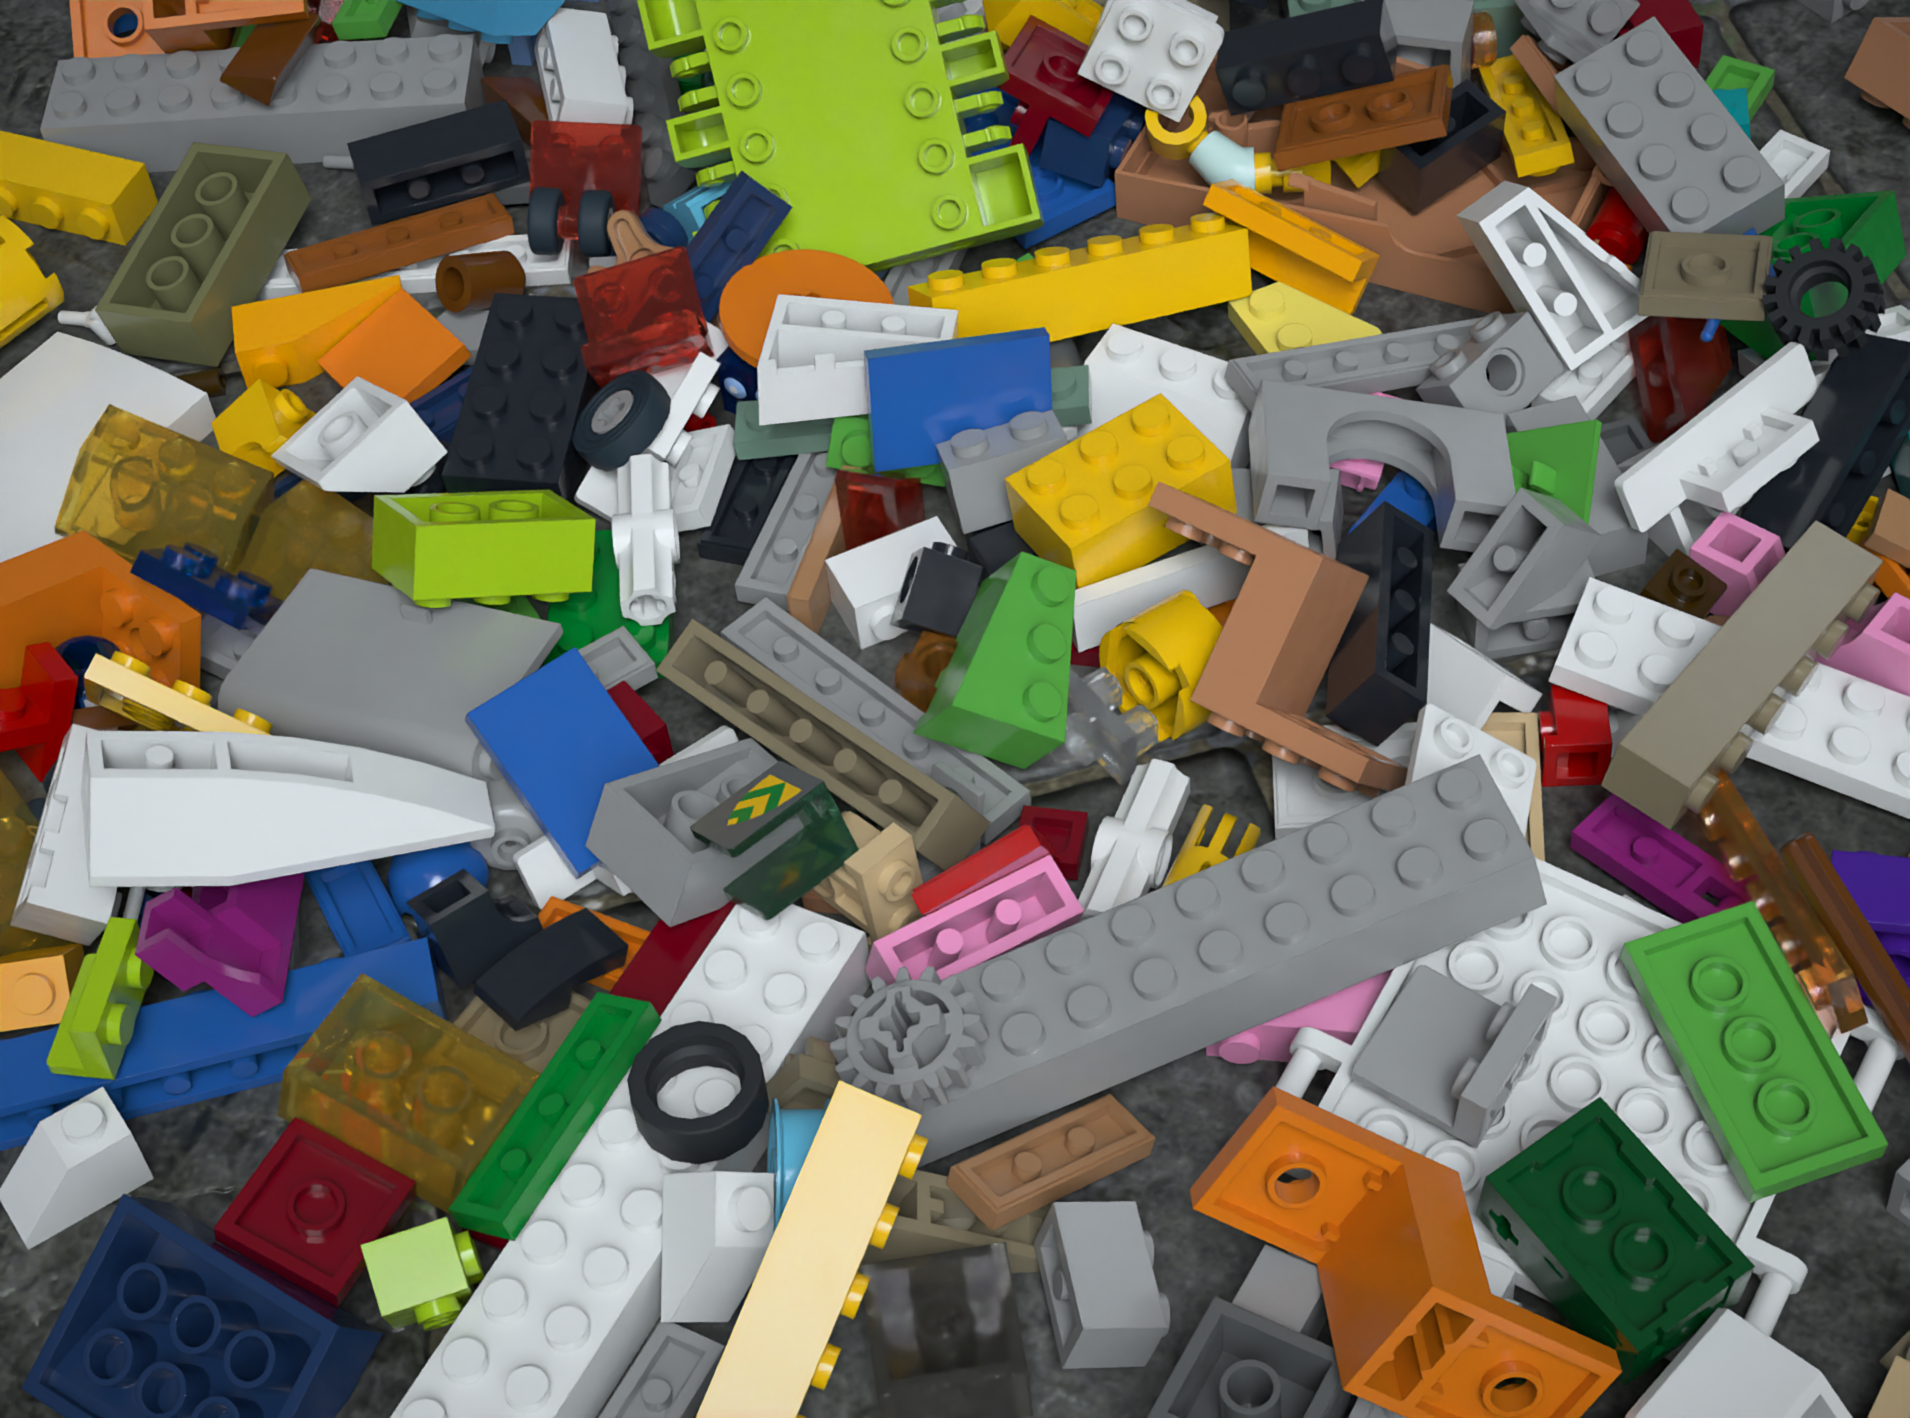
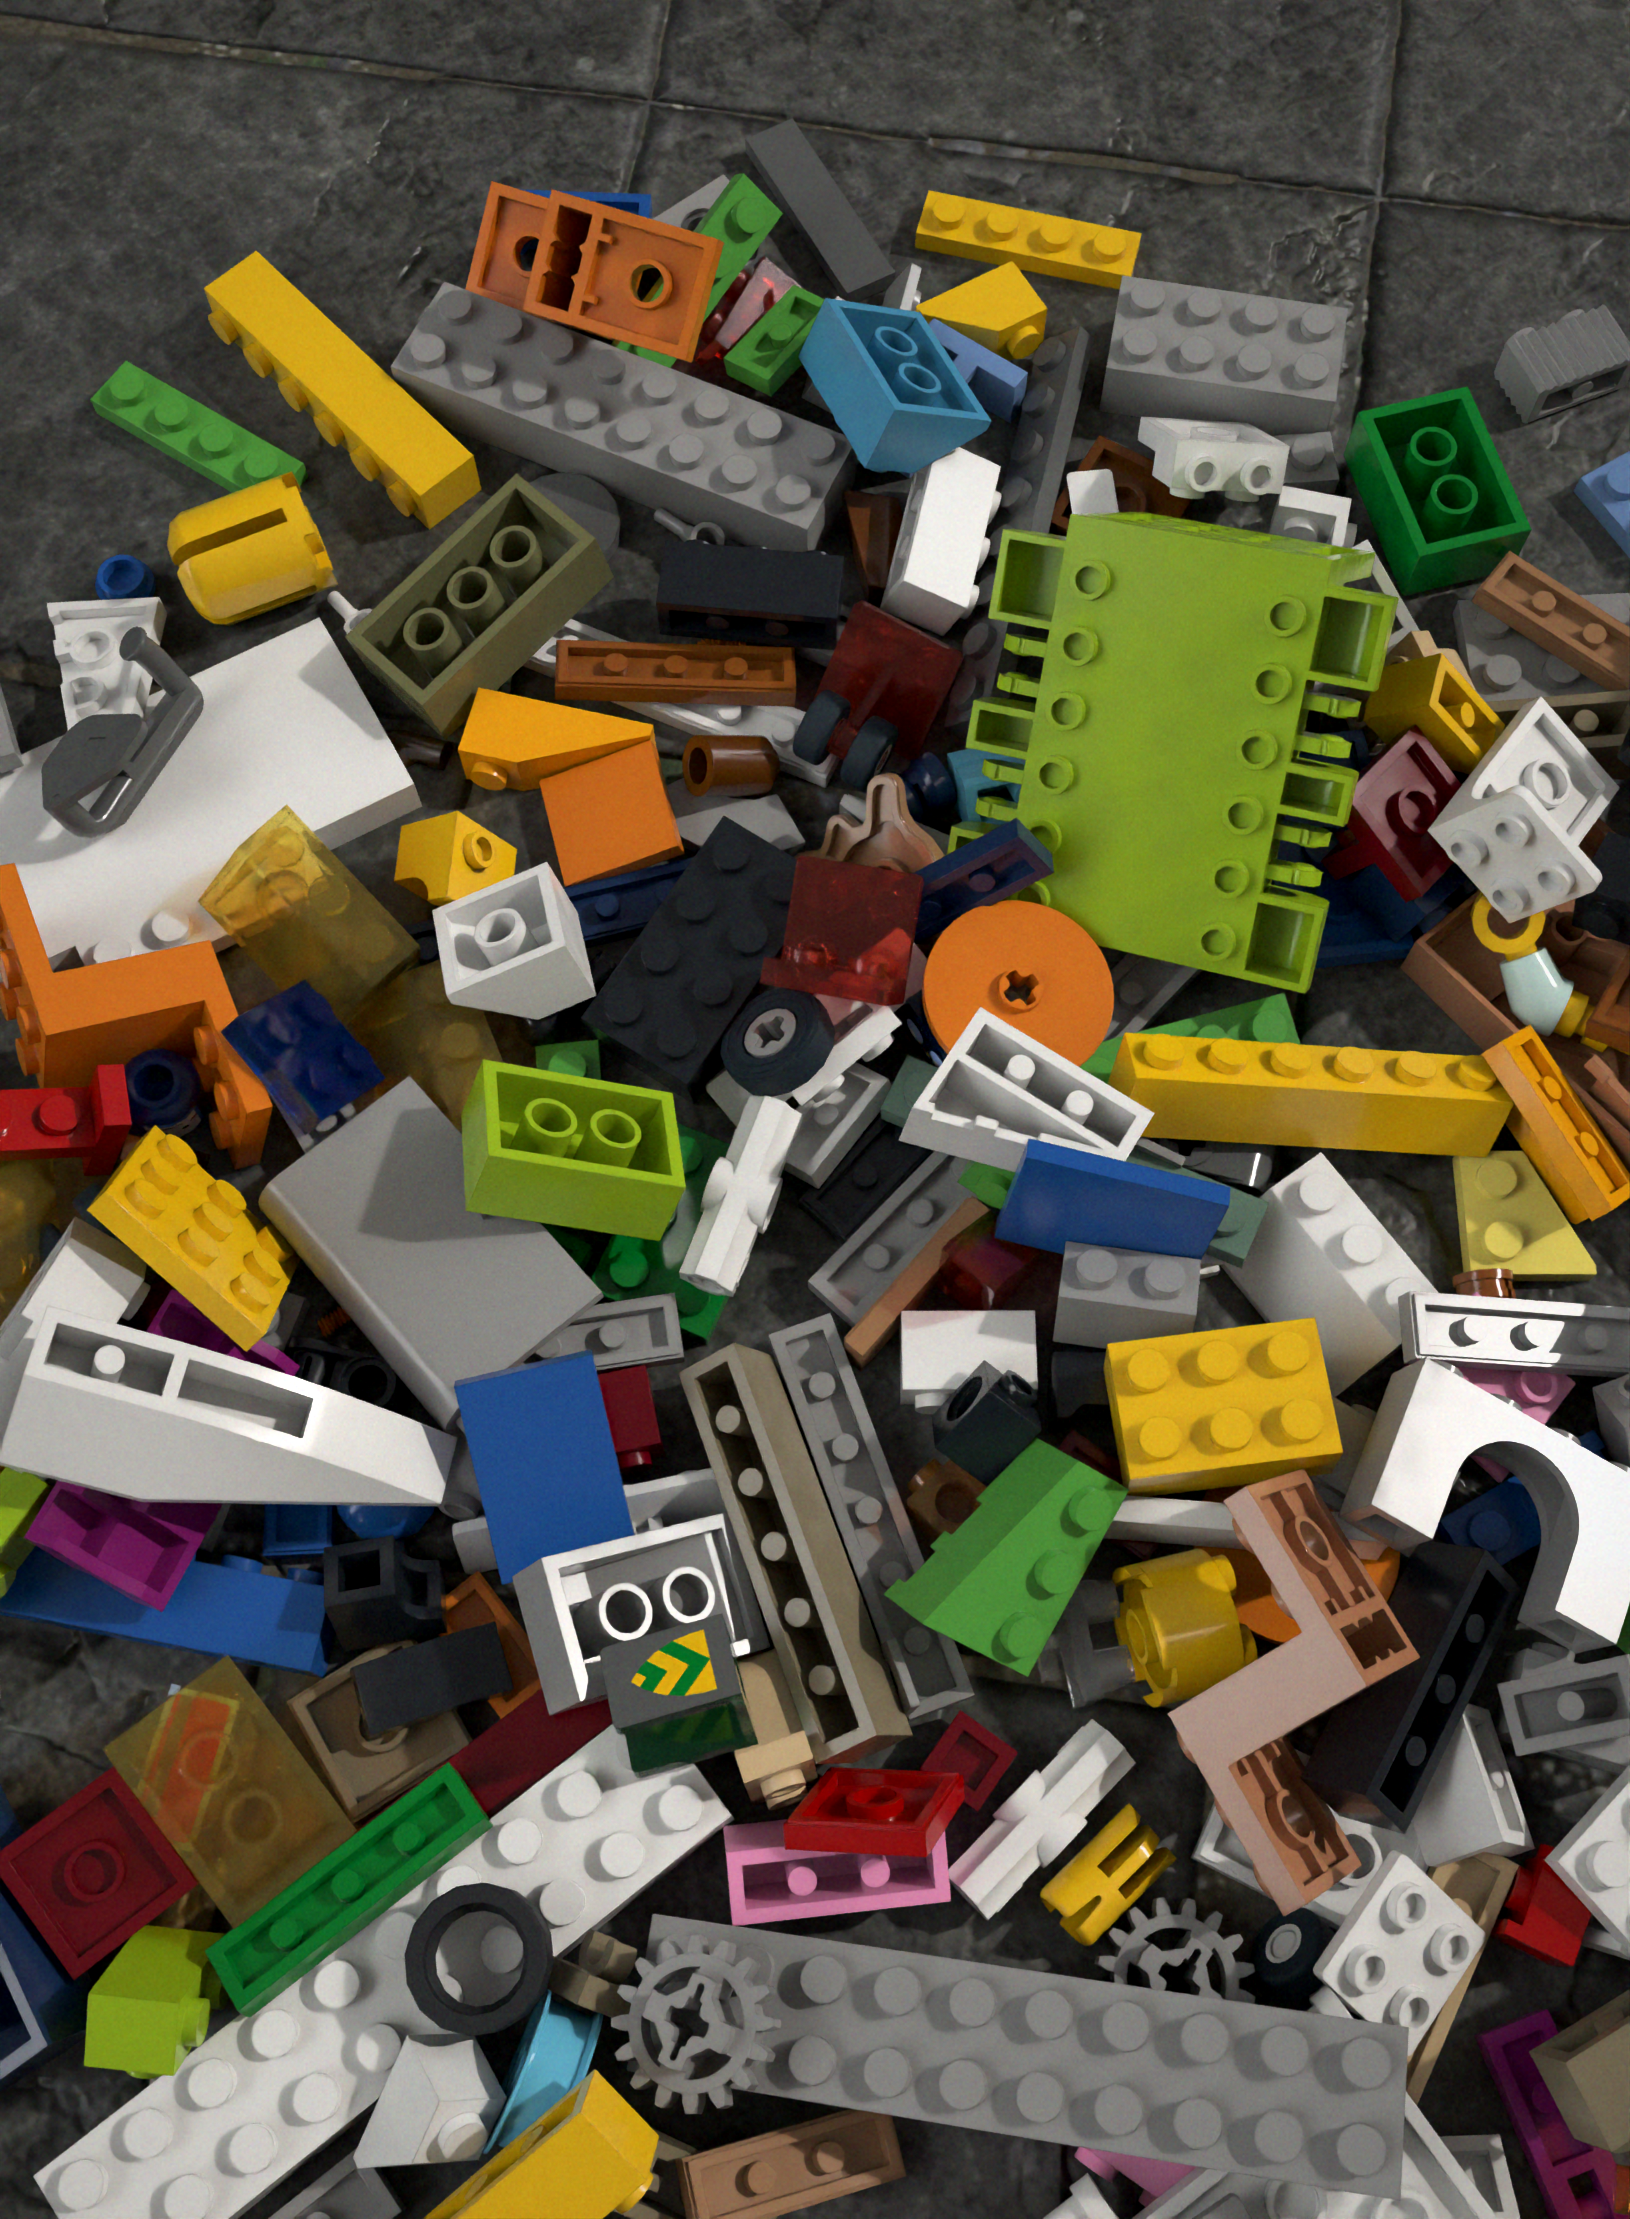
camera: 20 degrees right, 20 degrees up
(270, 57) = (634, 391): reddish brown slope -> none

